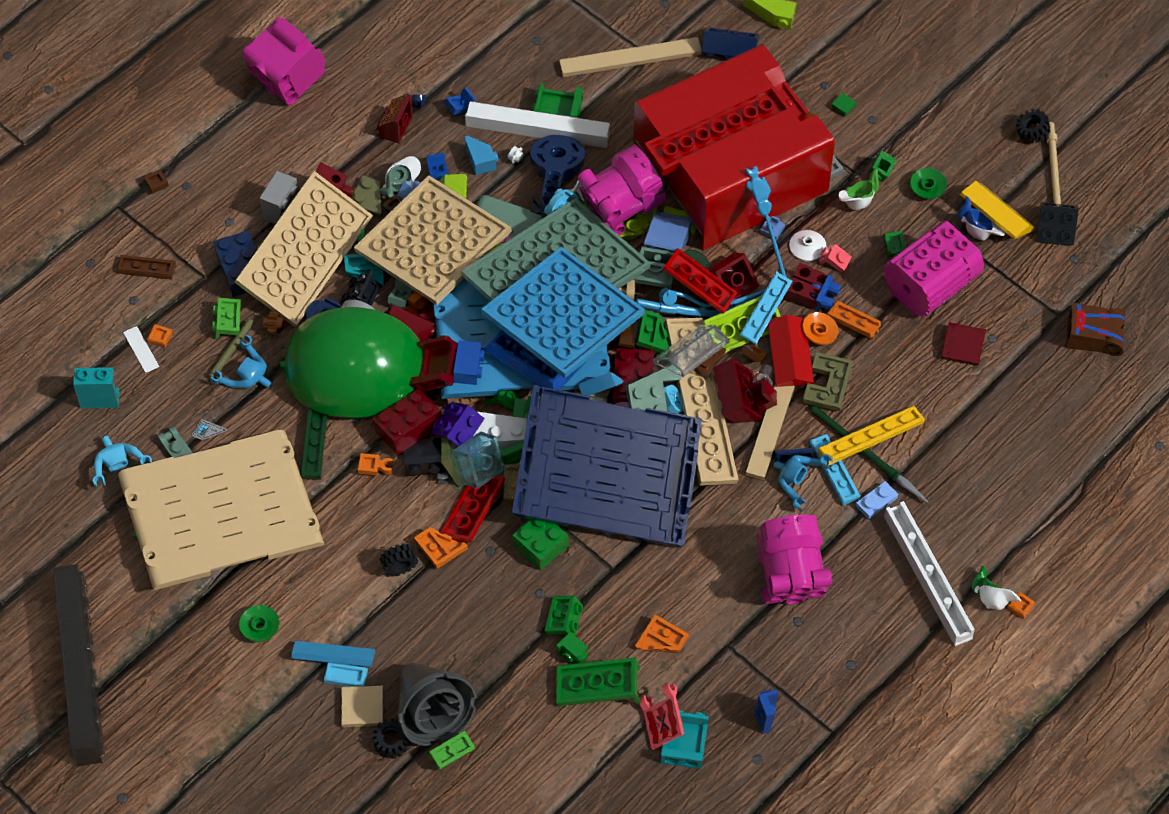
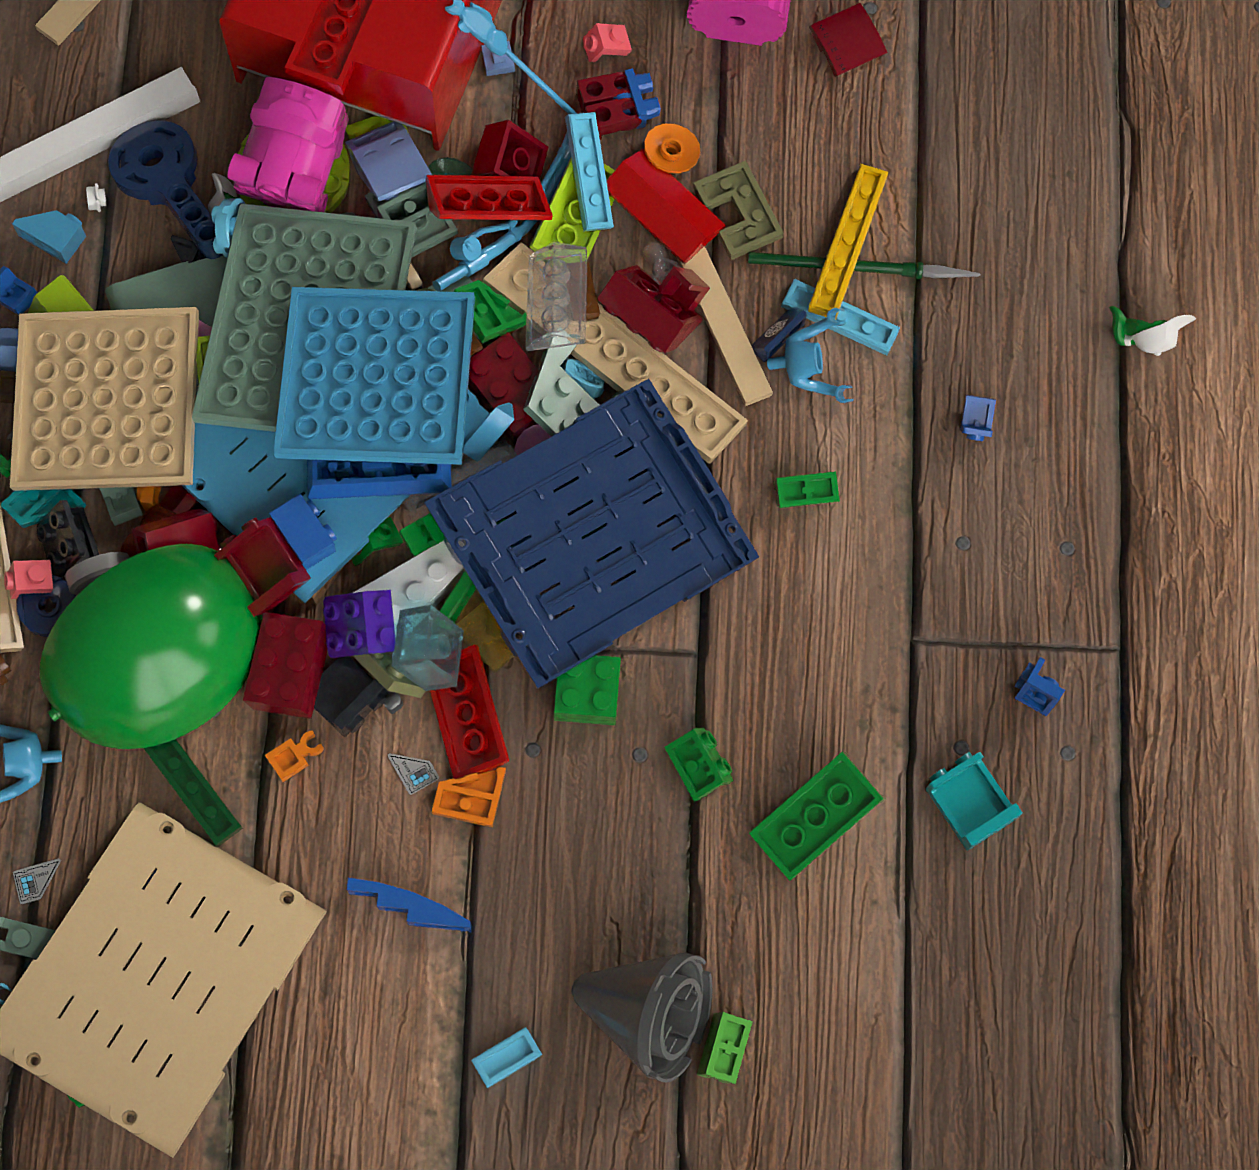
camera: 45 degrees left, 15 degrees up
(257, 616) = (329, 1074): green dish -> none
(326, 294) = (28, 577): none -> coral bracket
(333, 653) = (468, 1044): dark azure tile -> none
(362, 706) = (563, 1080): tan tile -> none
(364, 573) = (420, 910): none -> blue slope
(390, 749) = (630, 1111): black tyre -> none
(398, 559) = (442, 858): black tyre -> none
(423, 517) = (413, 772): none -> light grey sticker
(558, 102) = (87, 86): green panel -> none
(572, 649) = (749, 796): green brick -> none
(662, 637) = (834, 692): orange wing -> none
(662, 719) = (932, 797): coral flag -> none
(737, 532) = (806, 489): none -> green hinge
(753, 353) = (621, 241): reddish brown plate -> none
(792, 560) = (914, 478): dark pink piece -> none
(807, 251) = (557, 60): white dish -> none
(855, 319) = (699, 105): orange hinge -> none
(860, 565) = (977, 417): none -> blue bracket
(877, 500) = (921, 318): light blue plate -> none
(929, 574) = (1059, 363): white tile -> none
(1023, 607) = (1194, 328): orange tile -> none

